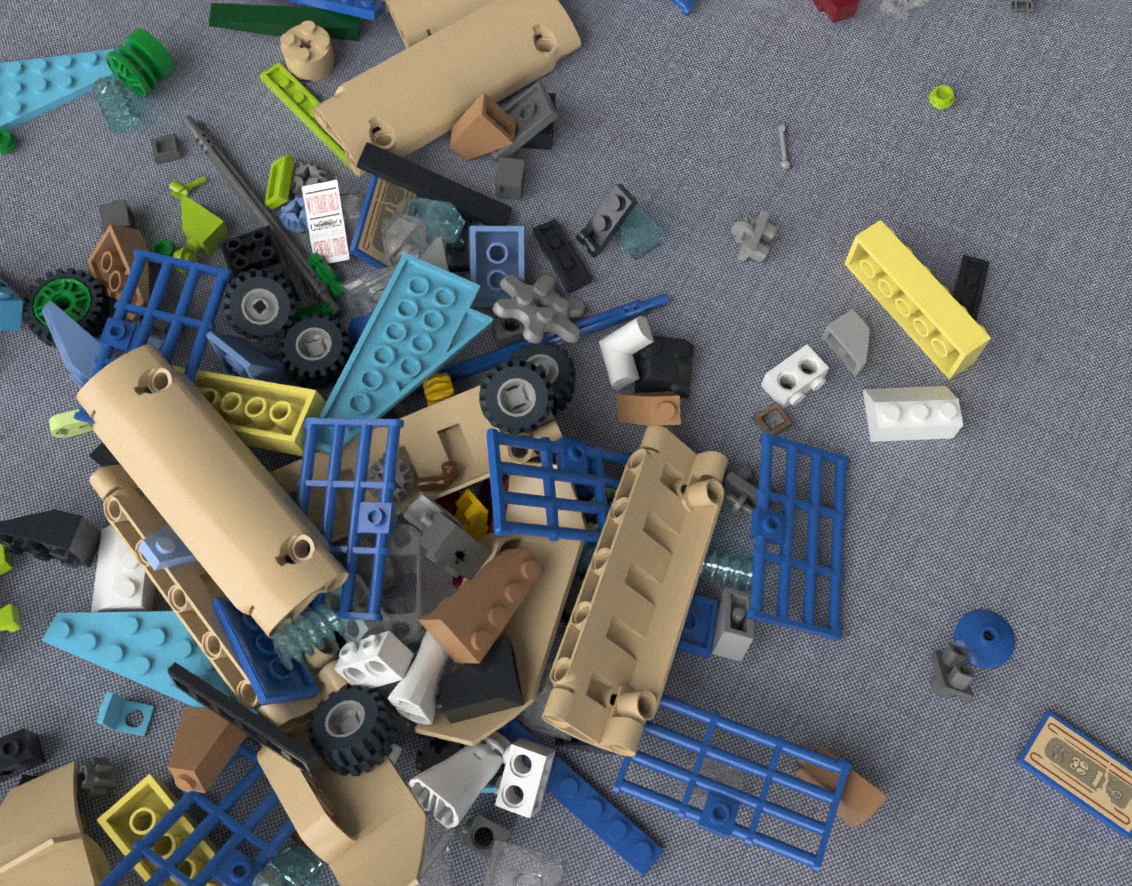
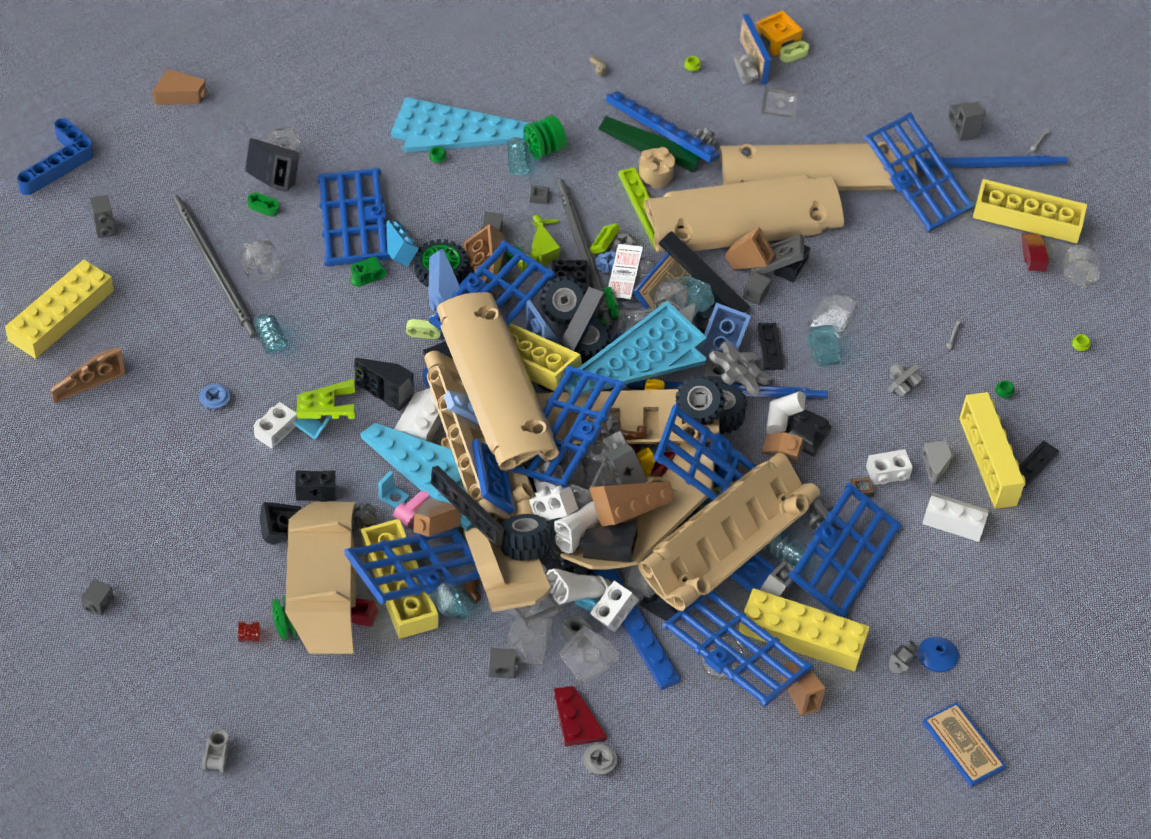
camera: 20 degrees right, 15 degrees down
(159, 742) = (406, 511): none -> bright pink piece
(297, 331) = (581, 321): none -> tile
(306, 633) = (521, 474): clear light blue piece -> none
(607, 220) = (807, 333): black plate -> none
(624, 166) = (836, 311): none -> clear slope
(802, 687) = (807, 629): none -> light yellow brick
(882, 200) = (1004, 389): none -> green plate

